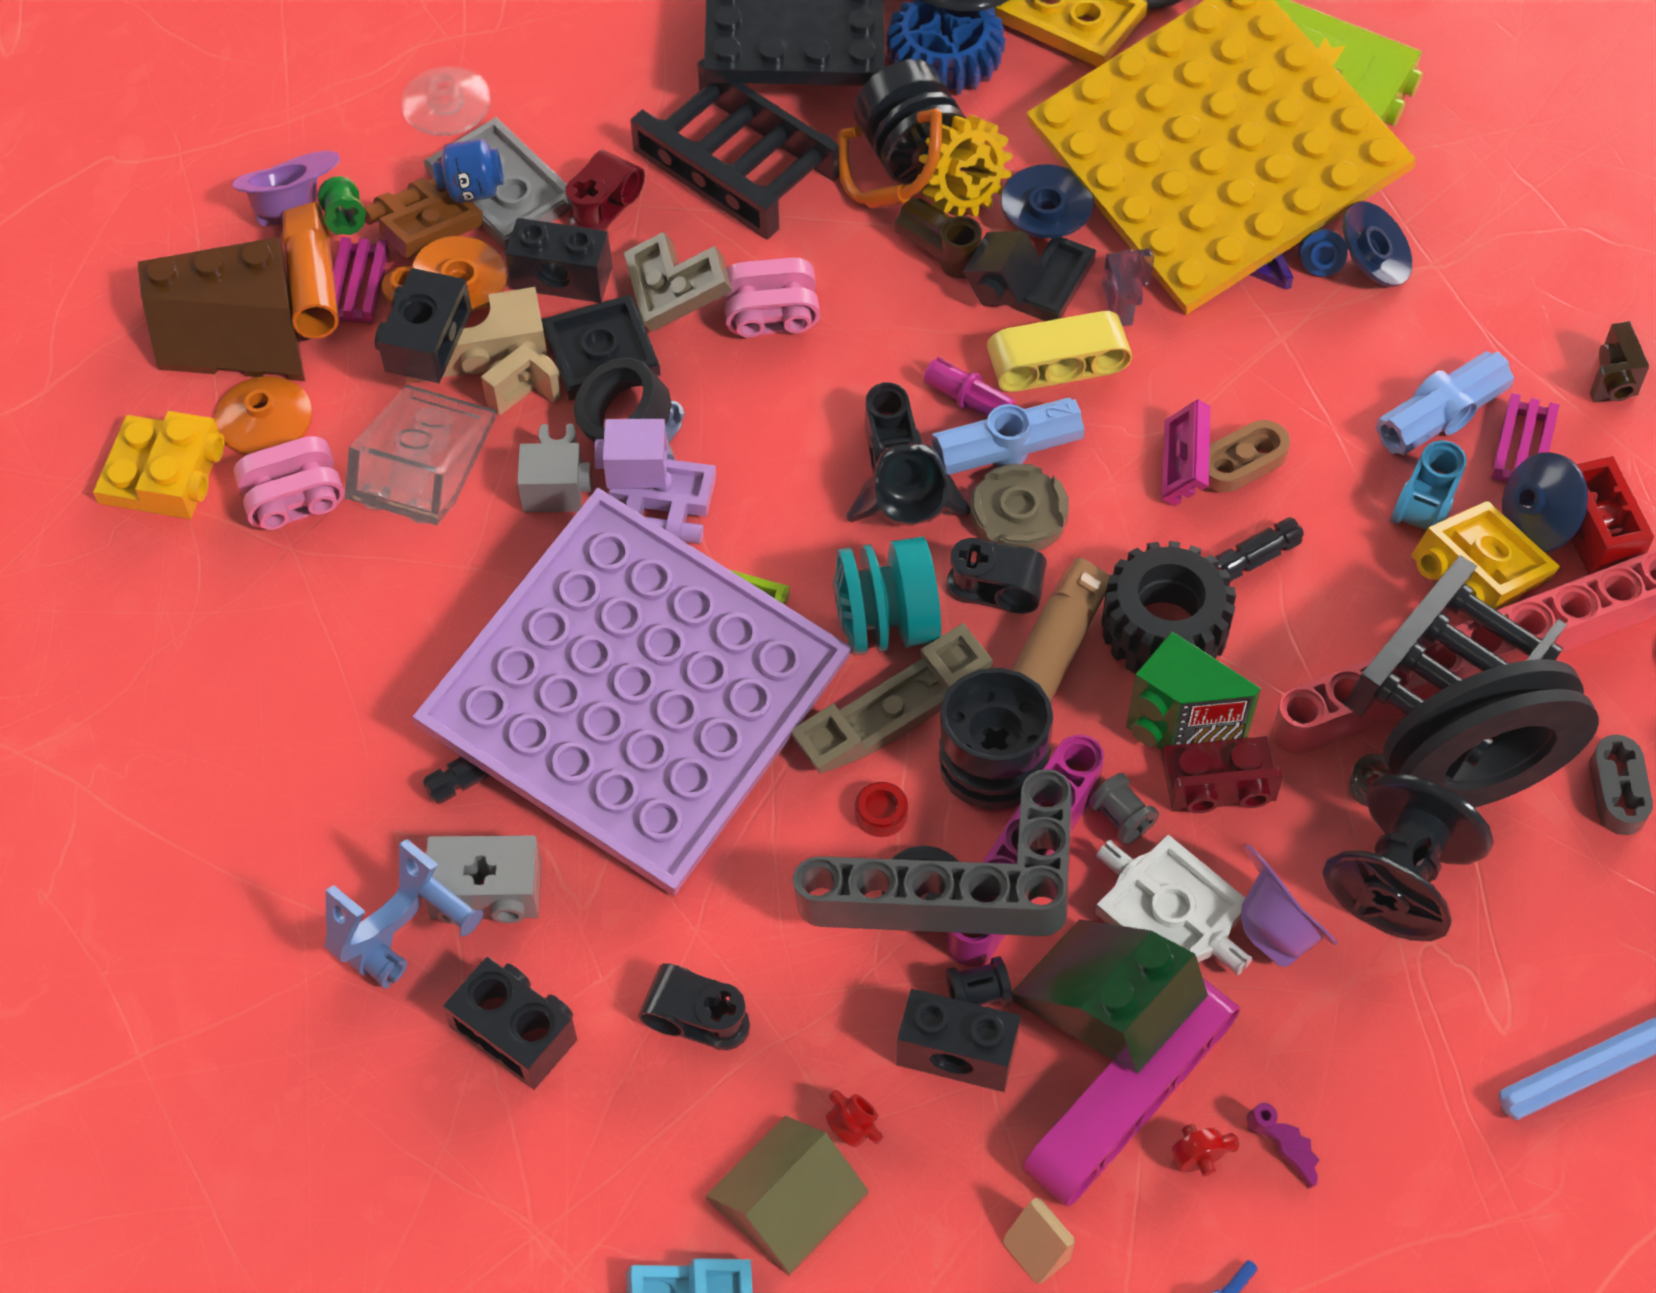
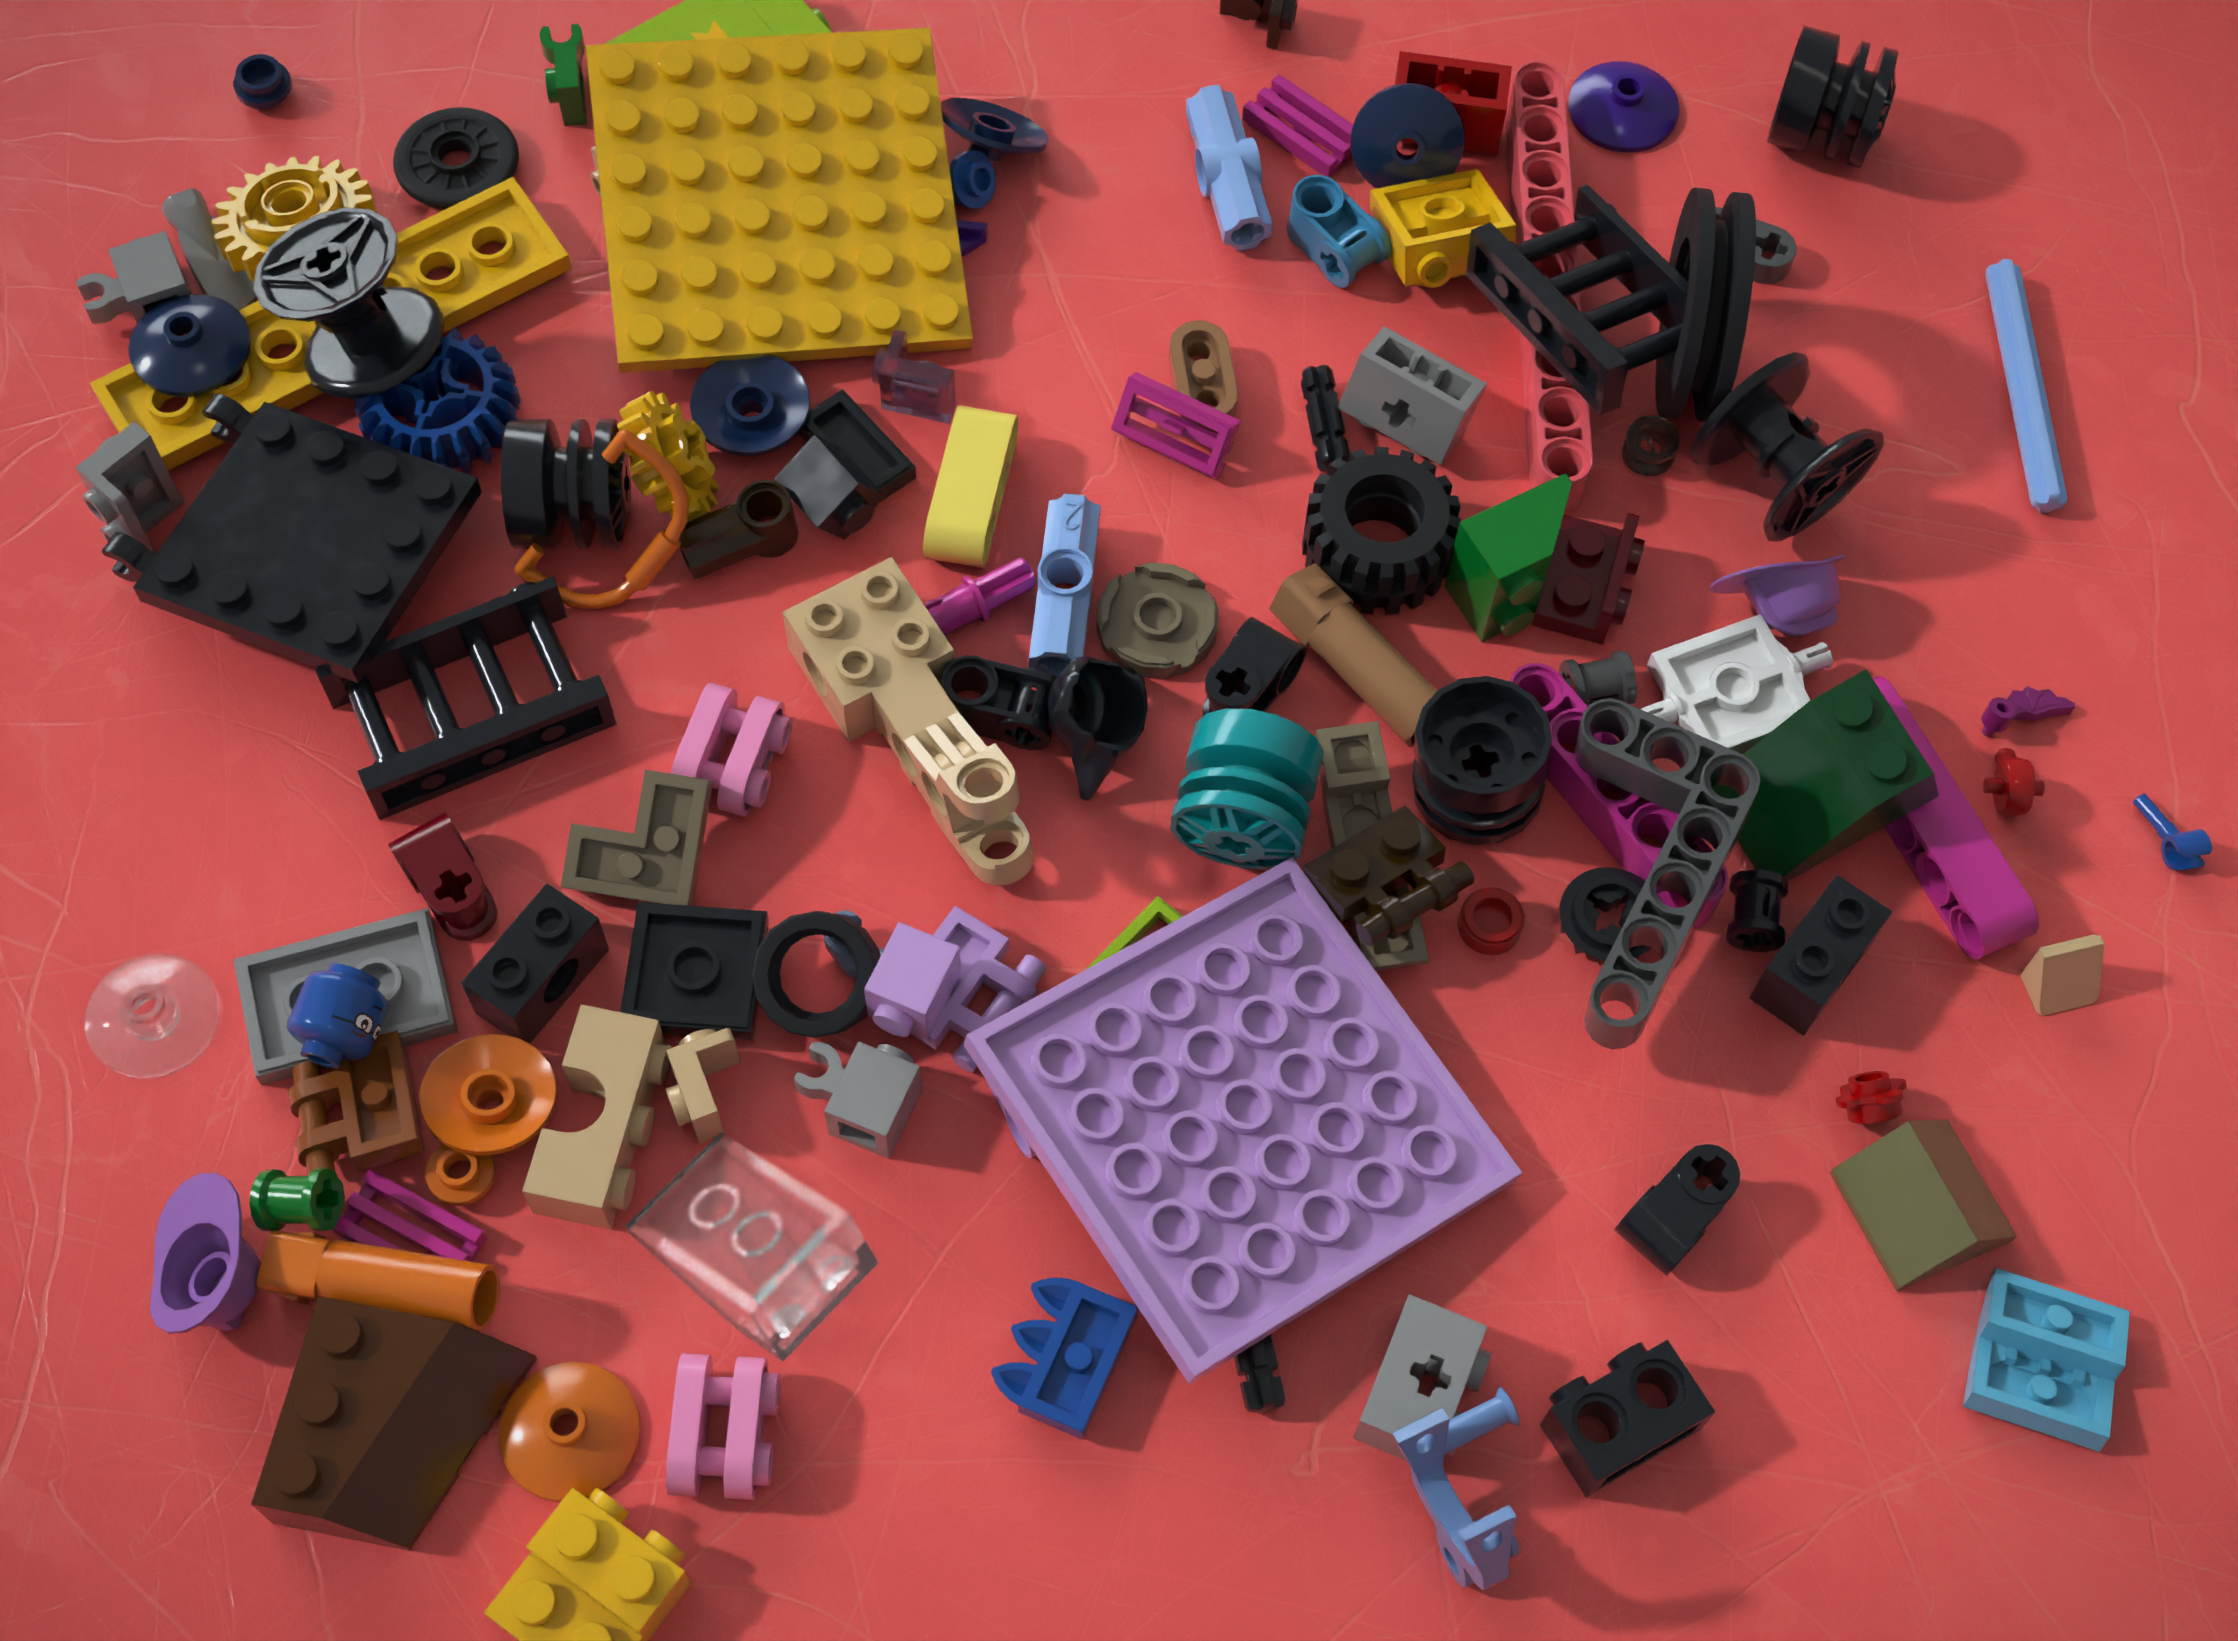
camera: 70 degrees left, 5 degrees up
(416, 660) = (1071, 1354): none -> blue plate
(423, 325) = (574, 1119): black brick -> none
(871, 702) = (1379, 862): none -> dark brown plate
(876, 339) = (881, 667): none -> tan brick
(1302, 587) = (1411, 395): none -> light grey brick

